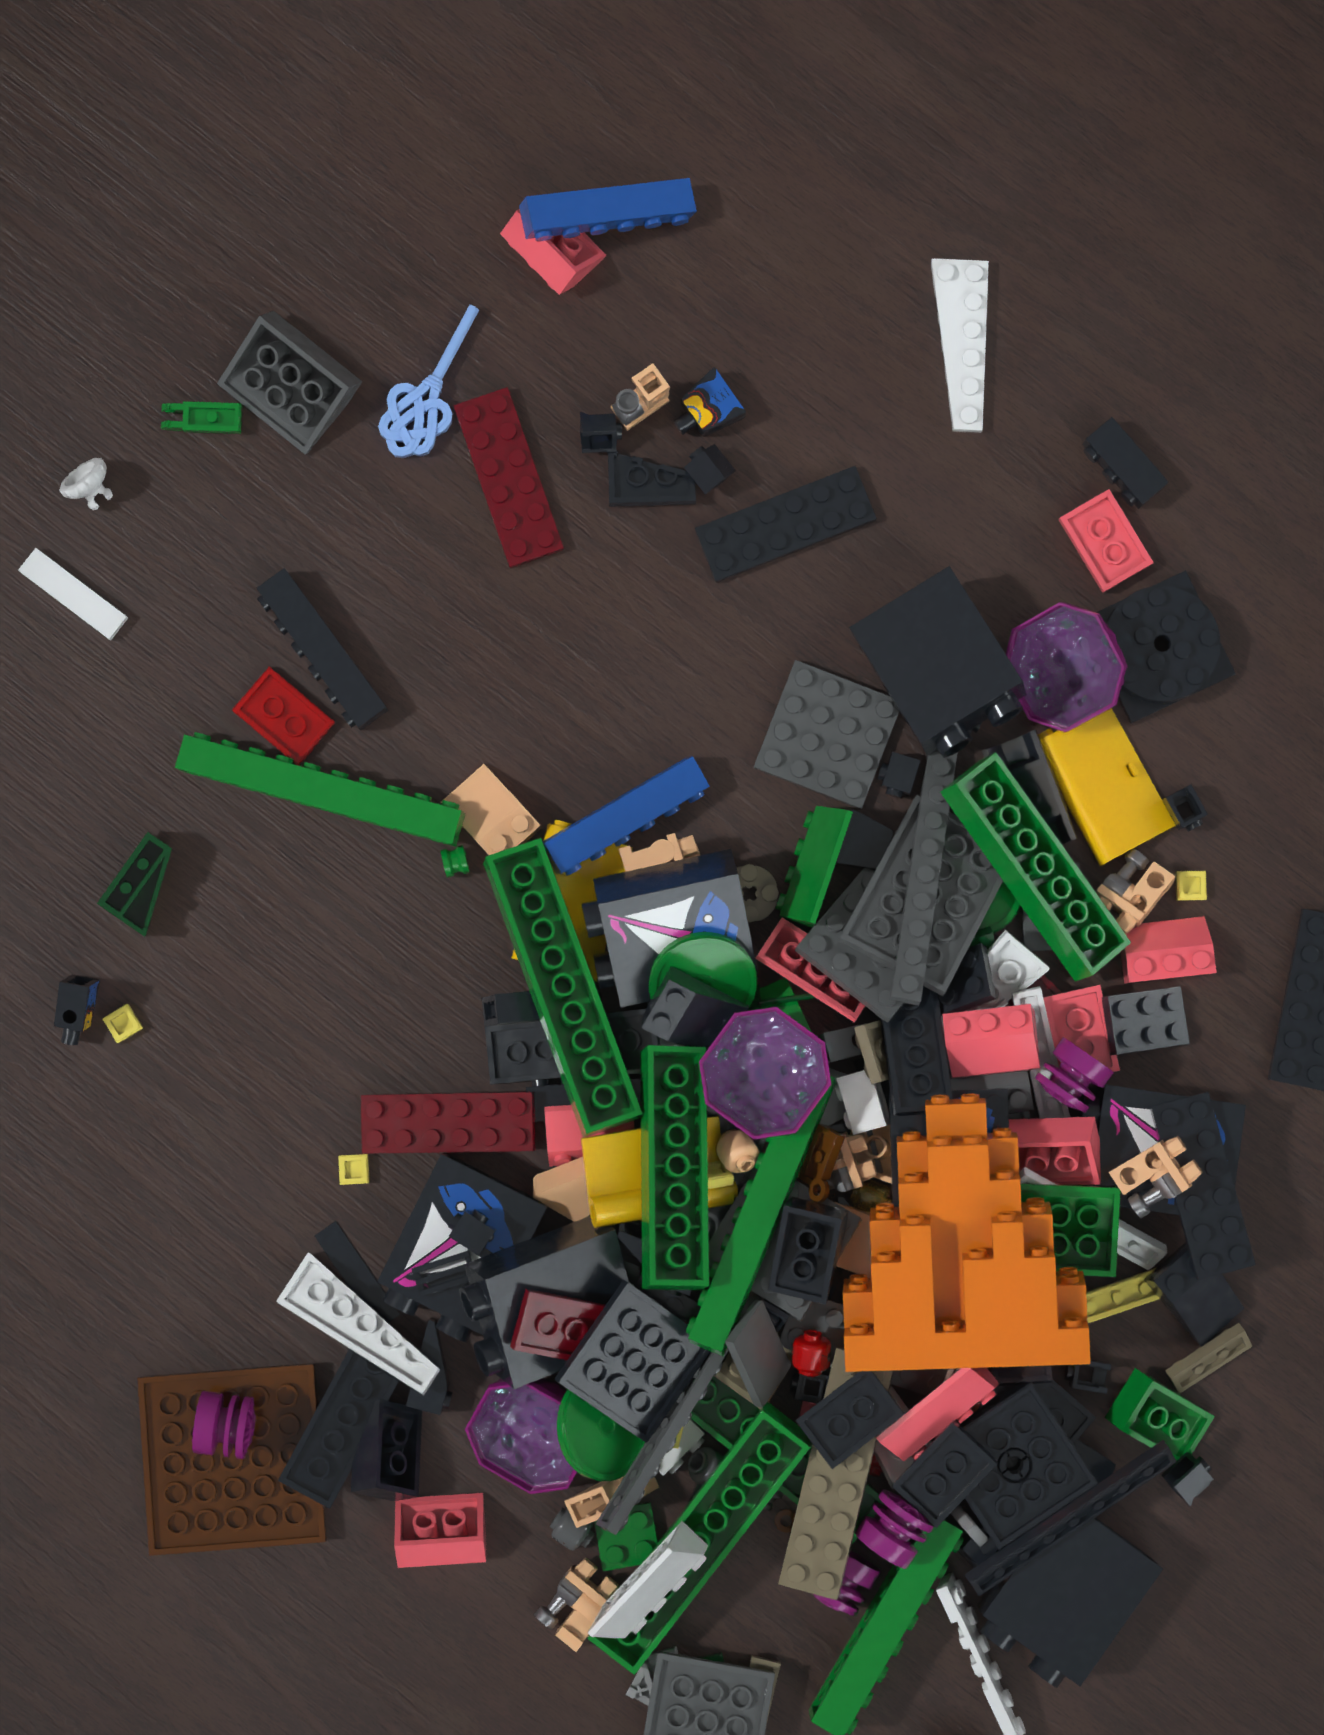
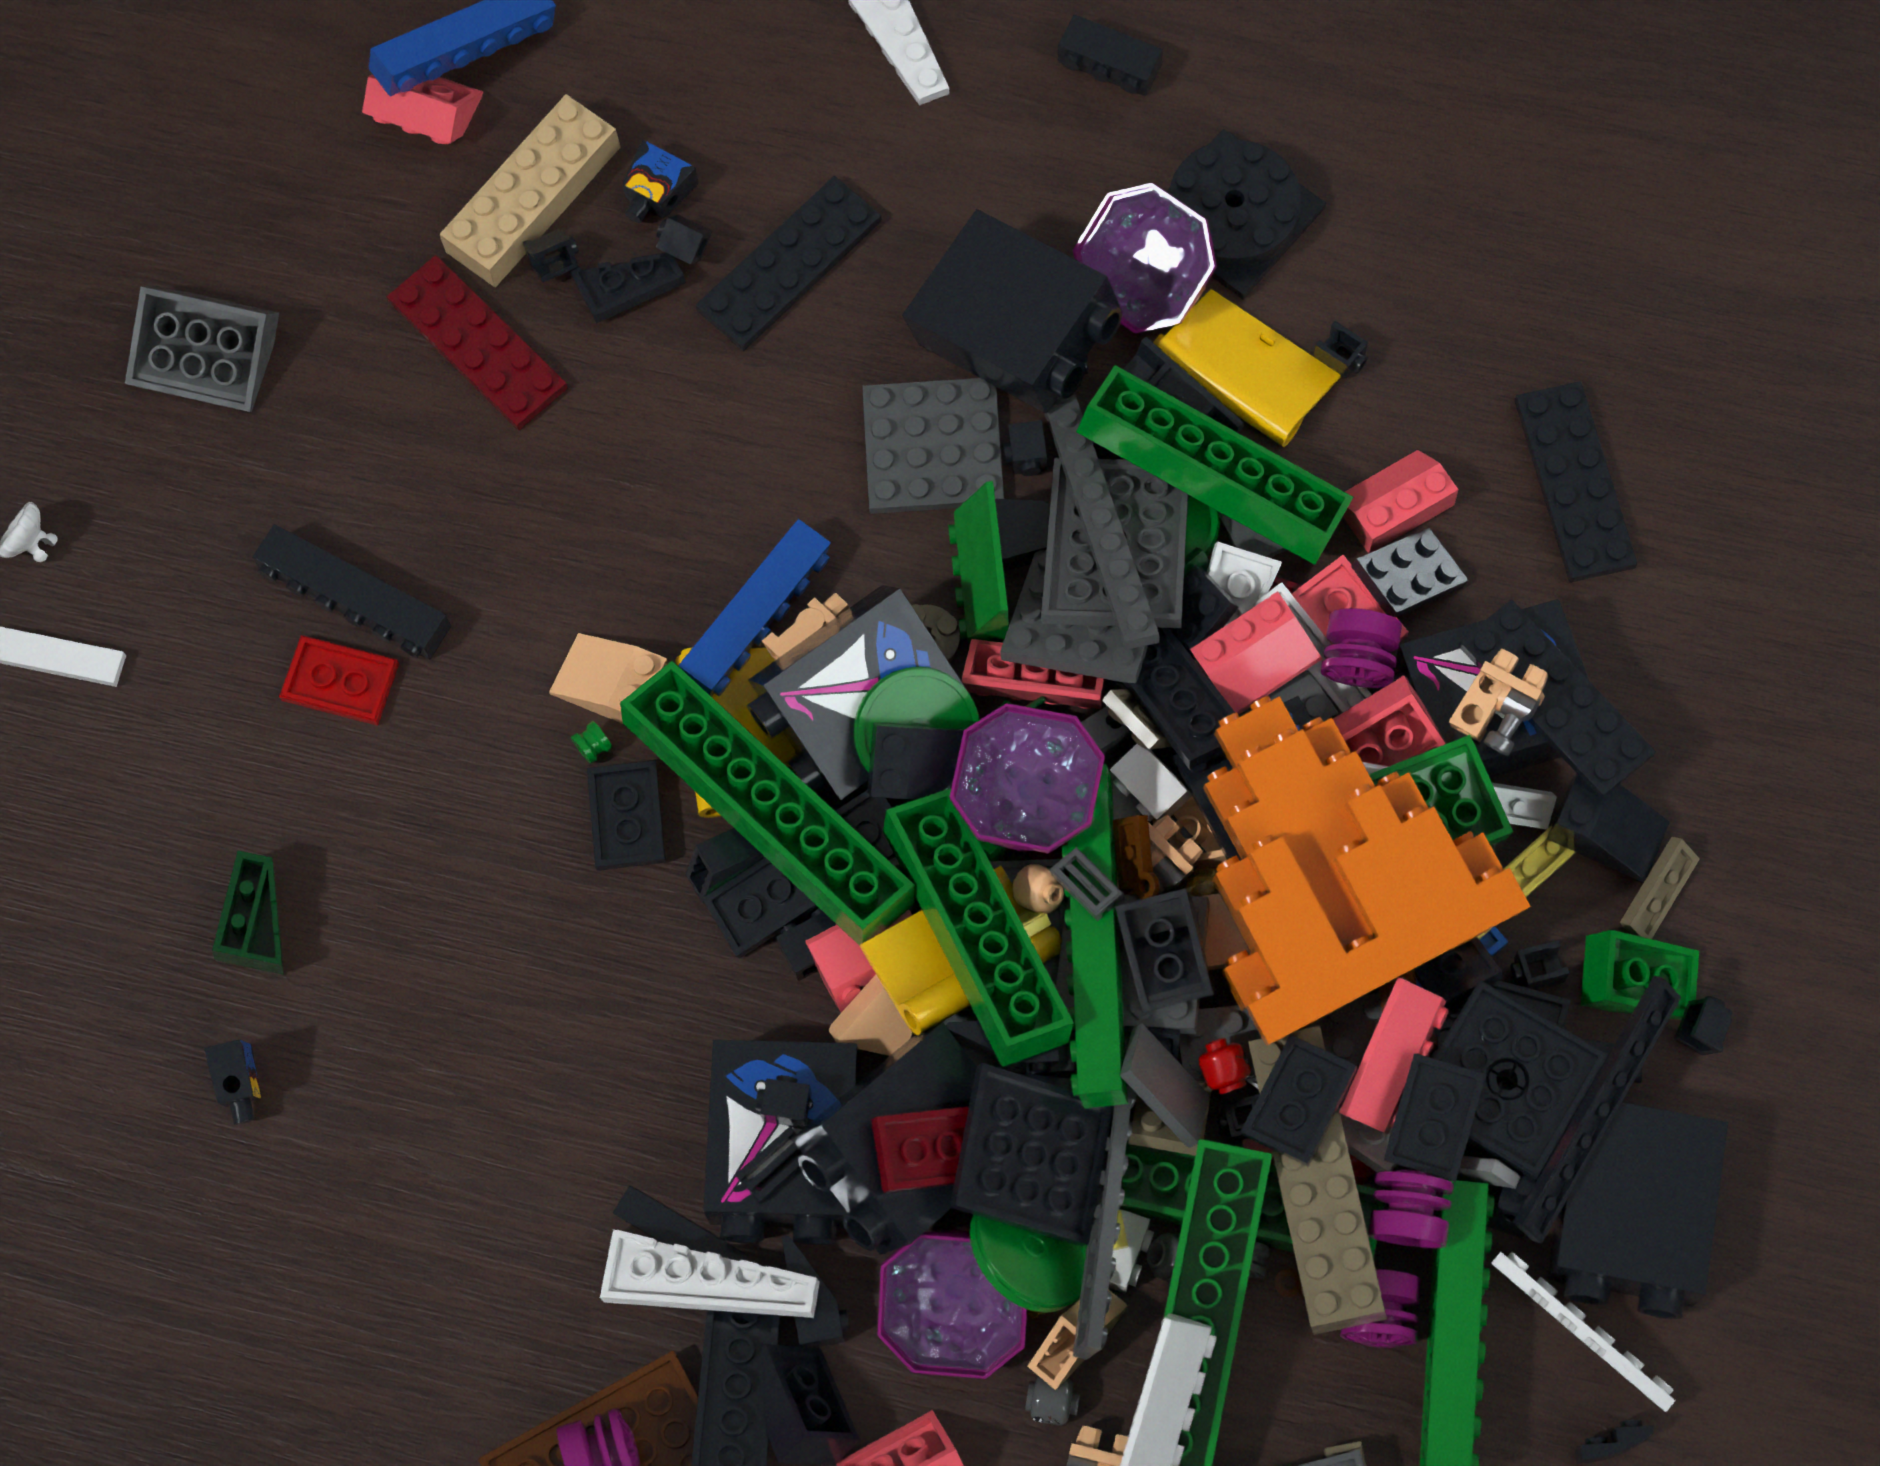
camera: 20 degrees left, 15 degrees down
(122, 1023) = (296, 1078): light yellow tile -> none
(204, 417) = (123, 420): green hinge -> none
(320, 790) = (410, 730): green brick -> none
(354, 1169) = (625, 1118): light yellow tile -> none
(413, 438) = (346, 317): light blue piece -> none
(448, 1122) = (716, 1007): dark red plate -> none
(456, 932) = (626, 815): none -> black plate
(605, 366) = (530, 190): none -> tan brick
(631, 1543) = (1113, 1381): green plate -> none
(648, 397) = (582, 197): light nougat hips -> none
(779, 1197) = (1105, 903): none -> dark grey tile
(1105, 541) = (1127, 136): coral plate -> none
(1132, 900) = (1340, 460): light nougat hips -> none
(1191, 885) = (1387, 426): light yellow tile -> none

